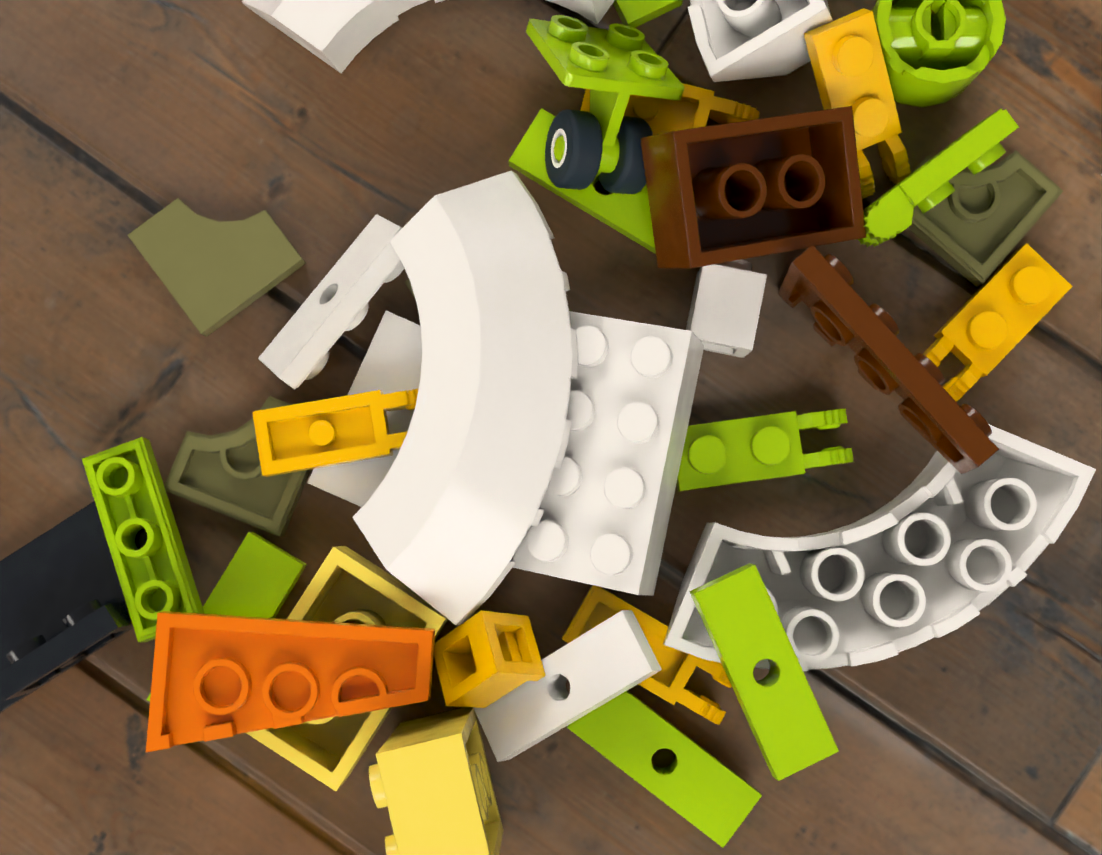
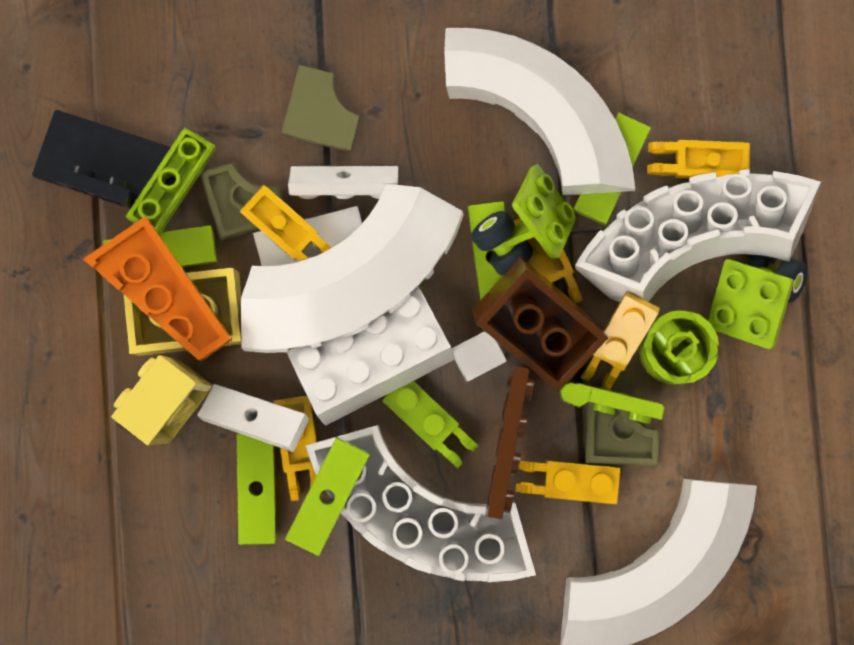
camera: 45 degrees right, 0 degrees up
(487, 659) = (238, 373): yellow brick -> none

